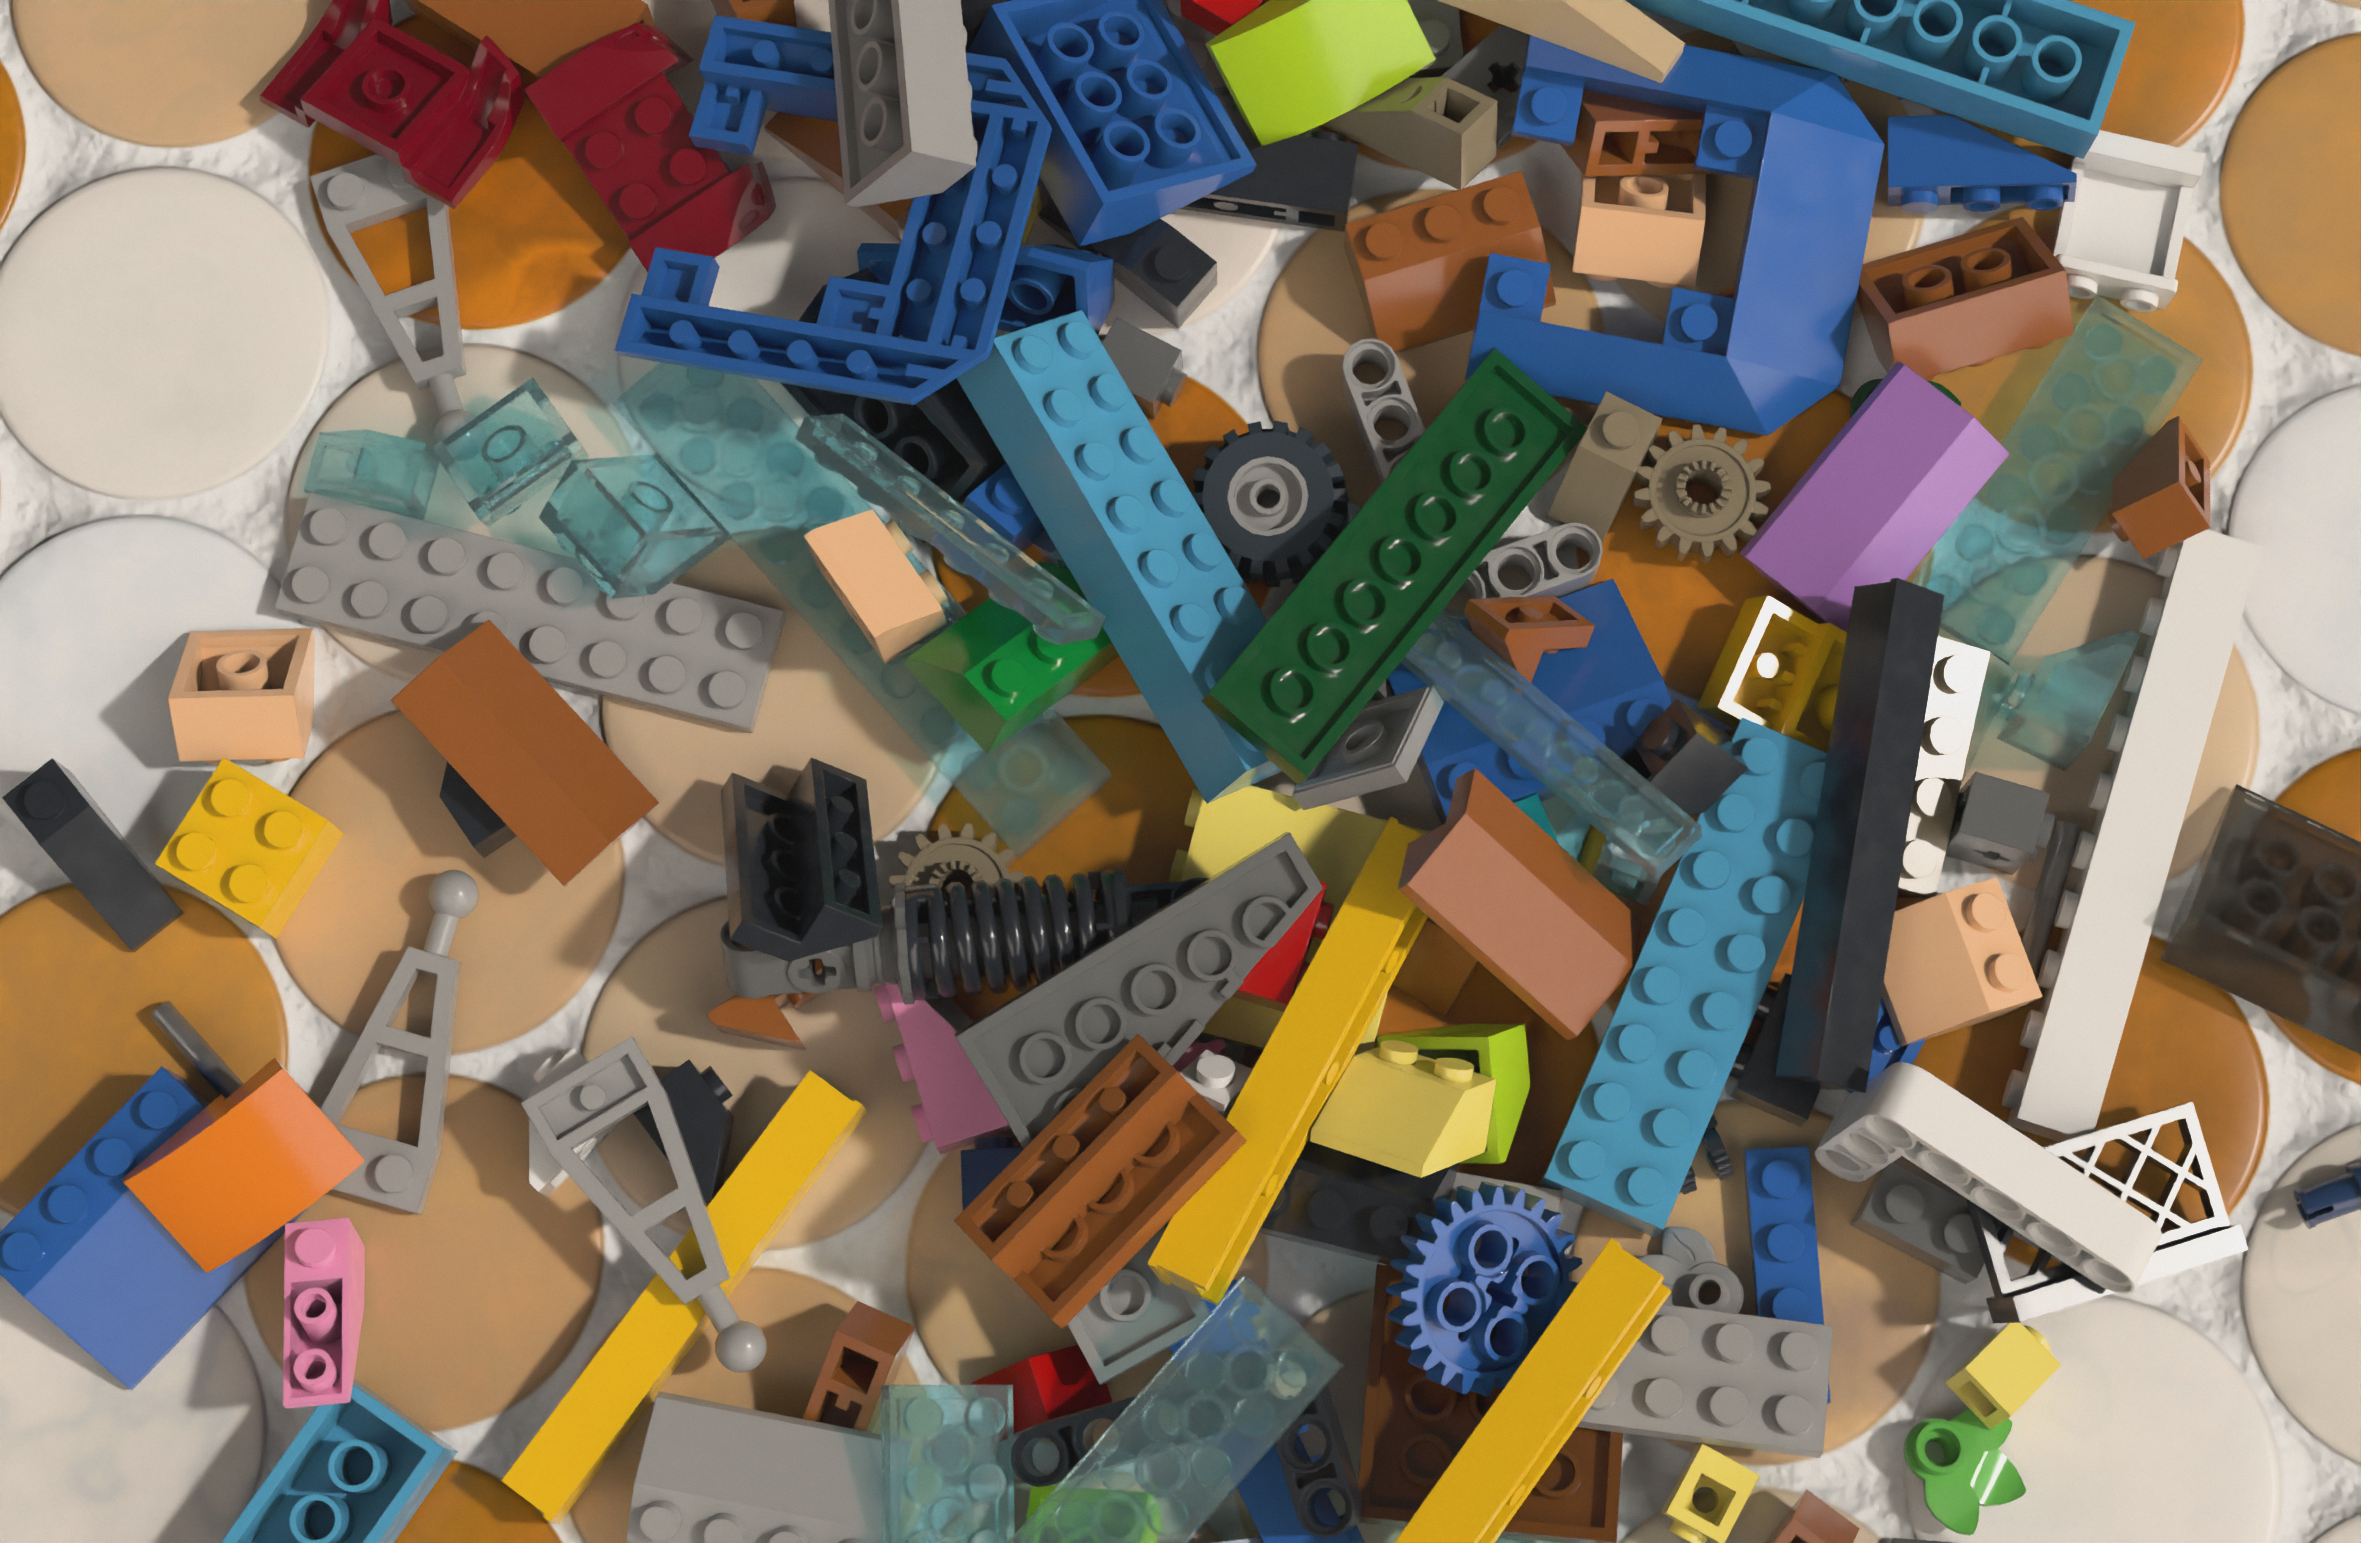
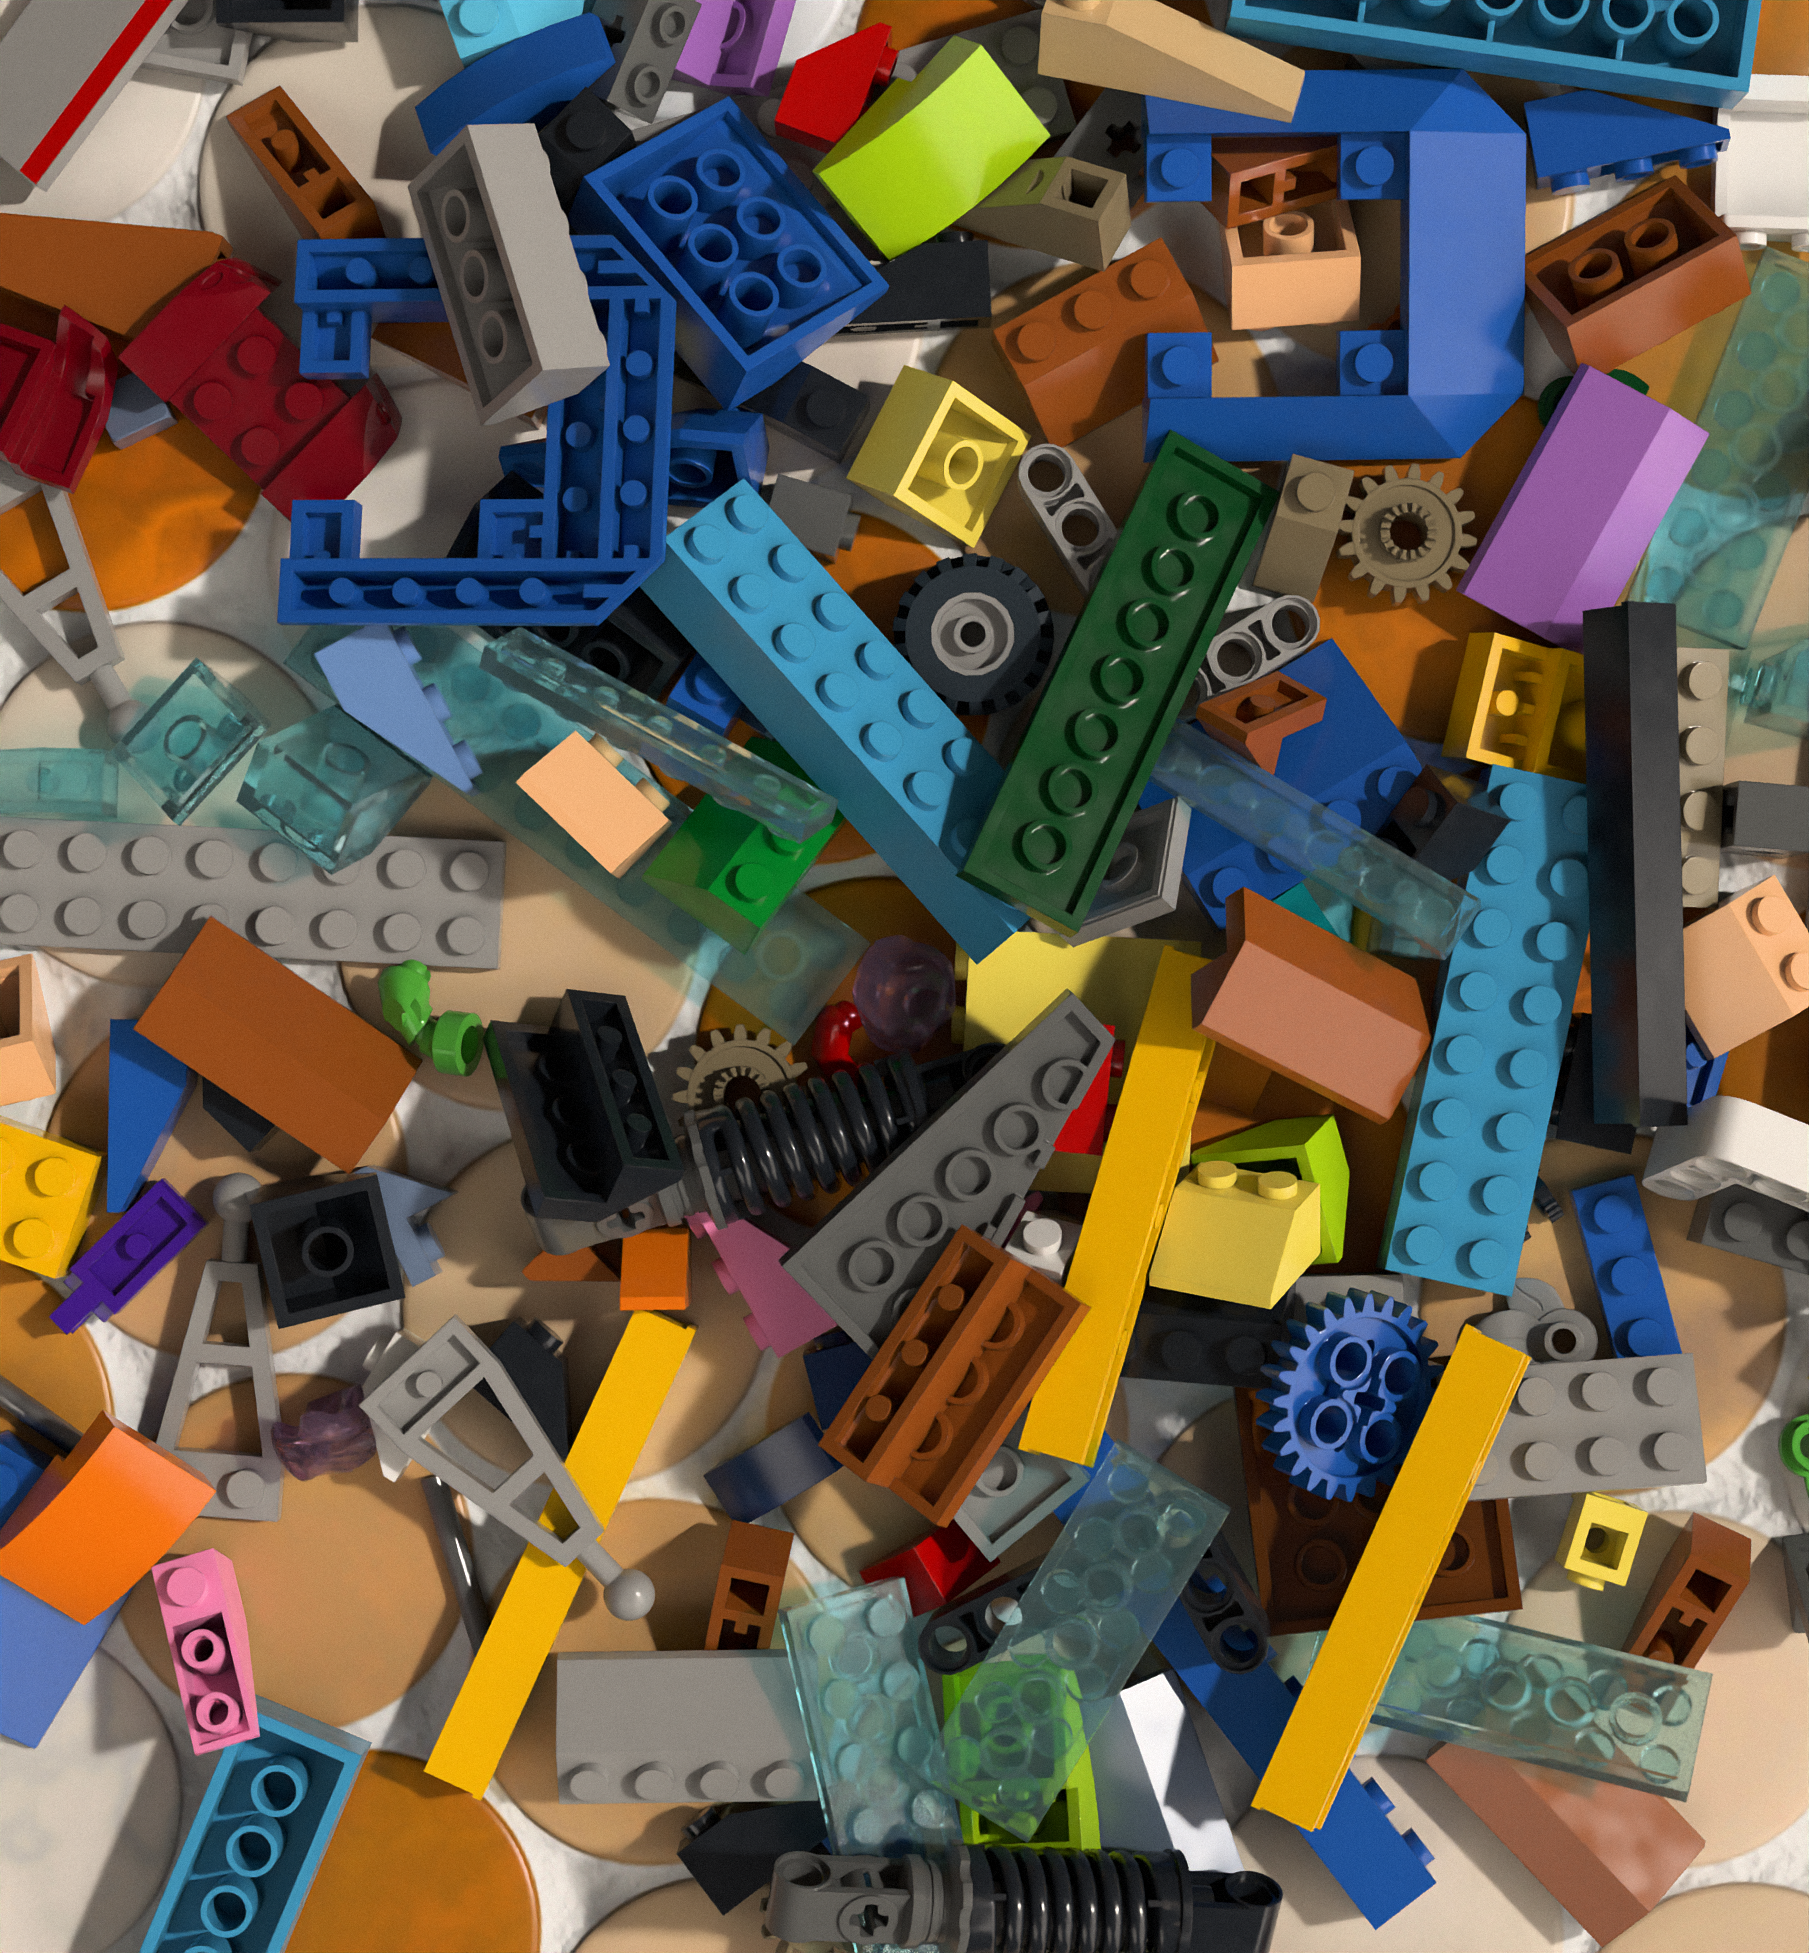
camera: 15 degrees left, 10 degrees up
(335, 930) = (129, 1256): none -> dark purple hinge
(387, 785) = (144, 1106): none -> blue slope
(484, 1137) = (330, 1438): none -> hair
(525, 951) = (325, 1246): none -> black slope
(531, 152) = (136, 412): none -> sand blue slope
(582, 1283) = (457, 1559): none -> dark grey bar
(604, 930) = (413, 1244): none -> sand blue slope
(689, 786) = (451, 1041): none -> bright green arm
(700, 445) = (382, 690): none -> medium blue slope
(838, 1036) = (657, 1269): none -> orange slope
(908, 1258) = (772, 1470): none -> dark blue slope
(1059, 851) = (834, 1036): none -> red arm
(1132, 823) = (903, 993): none -> hair
(1272, 334) = (939, 455): none -> light yellow slope

